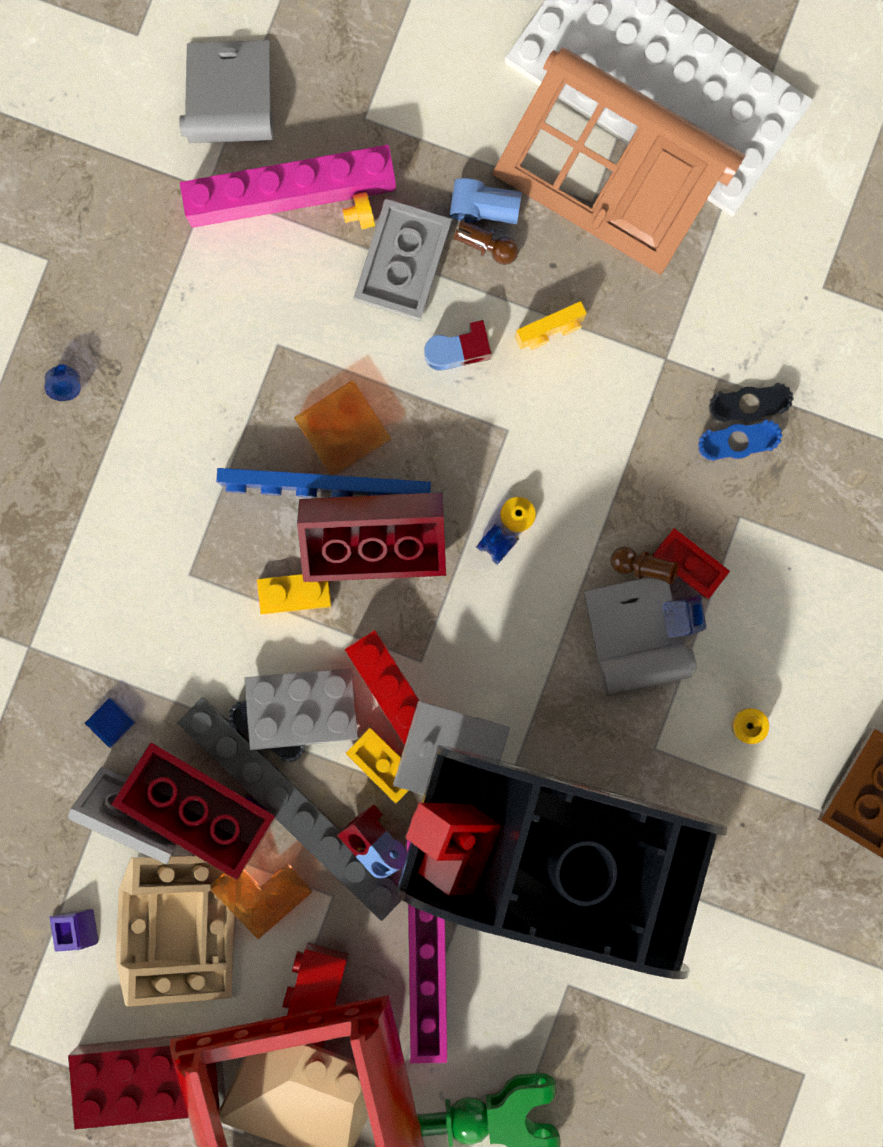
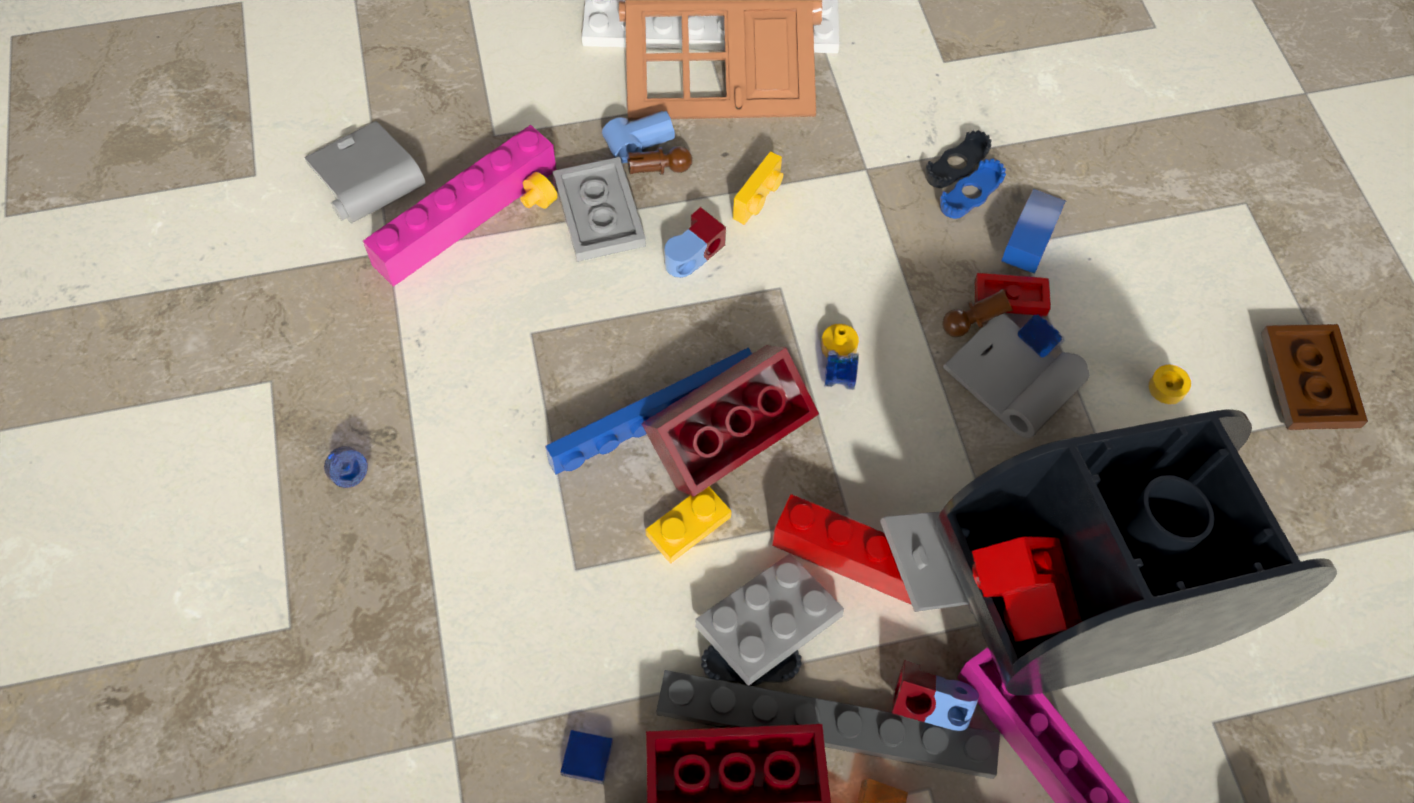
camera: 35 degrees left, 25 degrees down
(342, 428) = (636, 358): clear orange plate -> none
(377, 762) = (884, 622): yellow plate -> none
(759, 515) = (1033, 231): none -> blue slope

